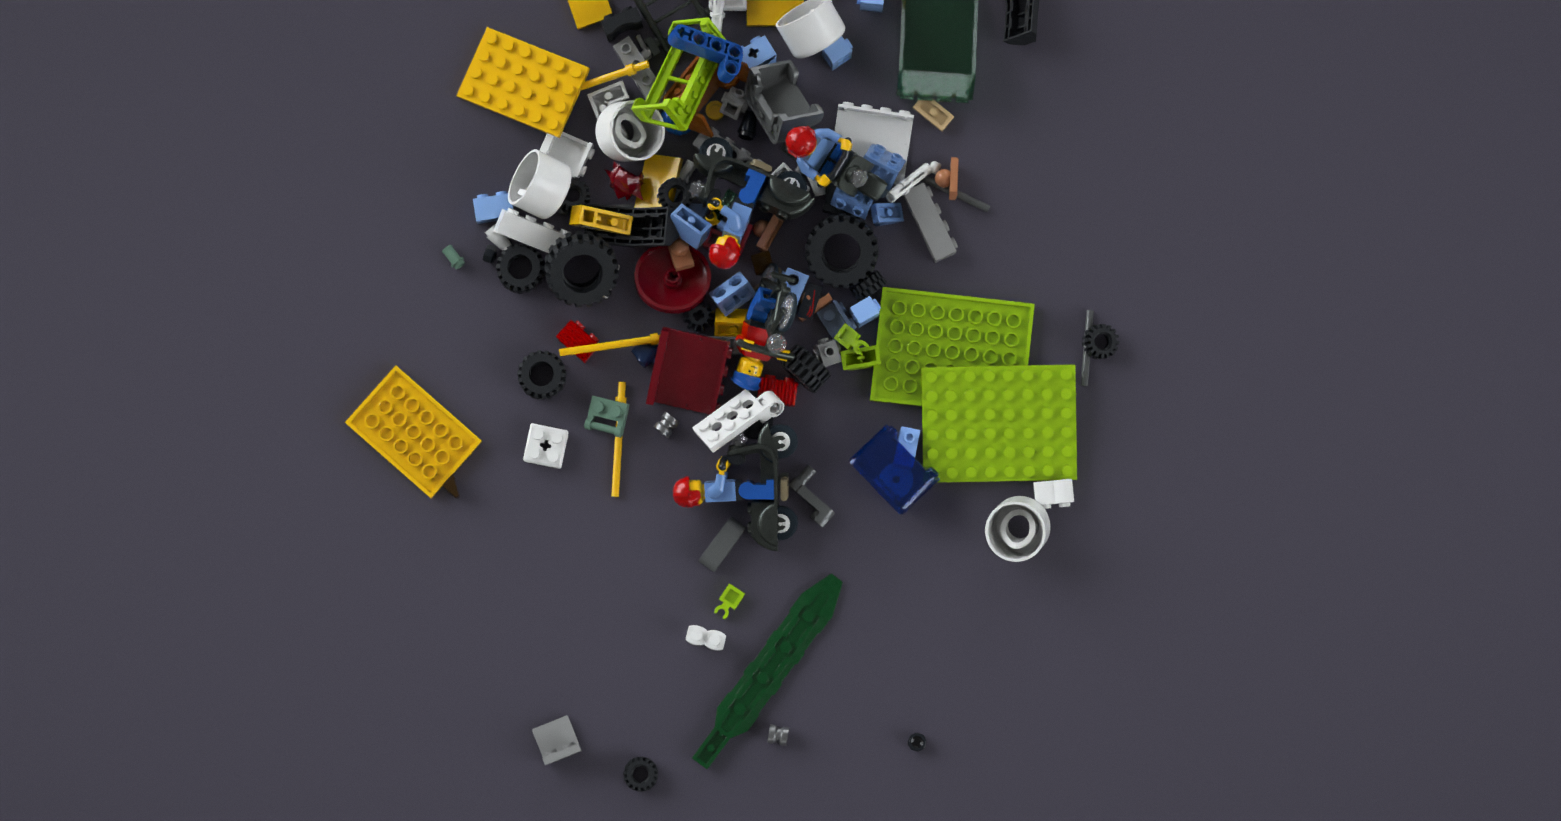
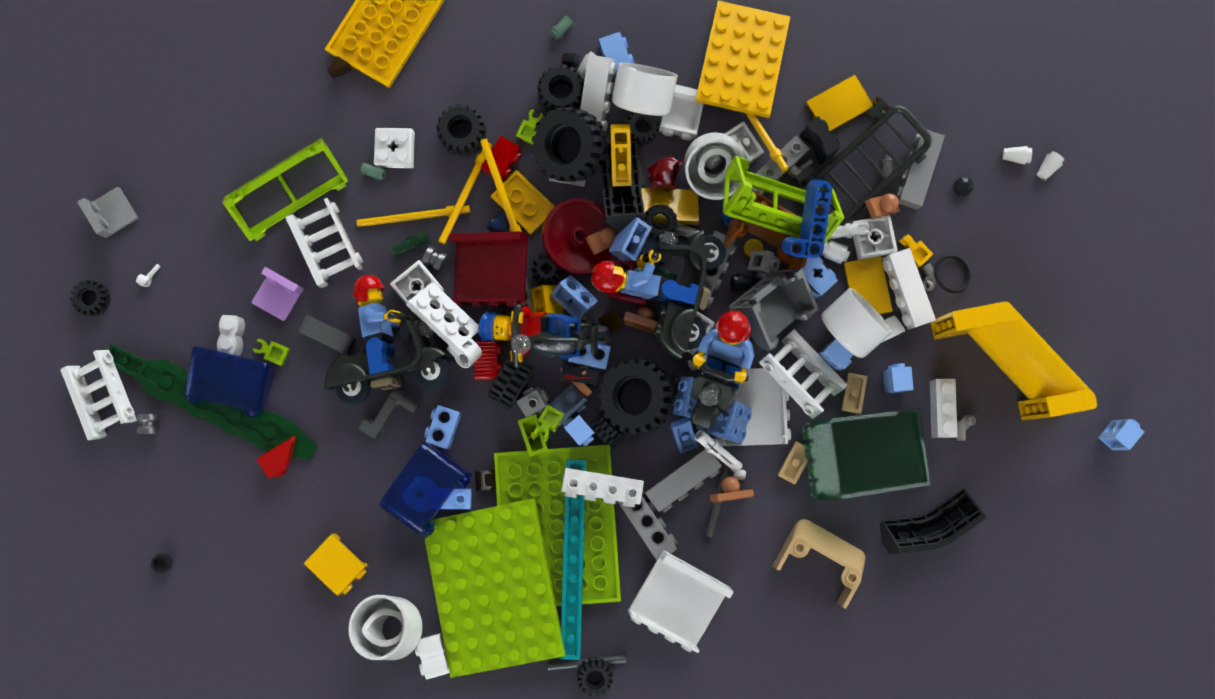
camera: 80 degrees right, 0 degrees up
(553, 308) = (527, 128): none -> lime plate
(565, 471) = (373, 171): none -> sand green pin
(565, 608) = (257, 231): none -> lime windscreen
(575, 362) = (463, 197): none -> yellow bar
(610, 410) = (438, 202): sand green plate -> none
(628, 322) = (527, 203): none -> yellow tile
(632, 718) = (145, 281): none -> white hand
(644, 544) = (313, 258): none -> white fence
(646, 445) = (410, 243): none -> clear green pin
(673, 587) = (277, 294): none -> lavender bracket
(687, 458) = (415, 274): none -> white brick
(735, 30) = (835, 252): none -> white brick
(751, 644) = (228, 380): none -> clear blue windscreen
(753, 790) = (83, 401): none -> white fence
(836, 610) = (278, 458): none -> red slope
(837, 441) = (448, 429): none -> light blue brick
(840, 74) = (814, 363): none -> white fence
(876, 41) = (854, 393): none -> tan plate
(894, 414) = (485, 480): none -> dark brown slope
(921, 299) = (602, 486): none -> white brick
(938, 282) = (646, 532): none -> light grey brick
(950, 570) = (336, 565): none -> yellow panel
(984, 340) = (573, 570): none -> teal plate
(1004, 113) = (809, 535): none -> tan windscreen
(1043, 248) = (678, 601): none -> white panel

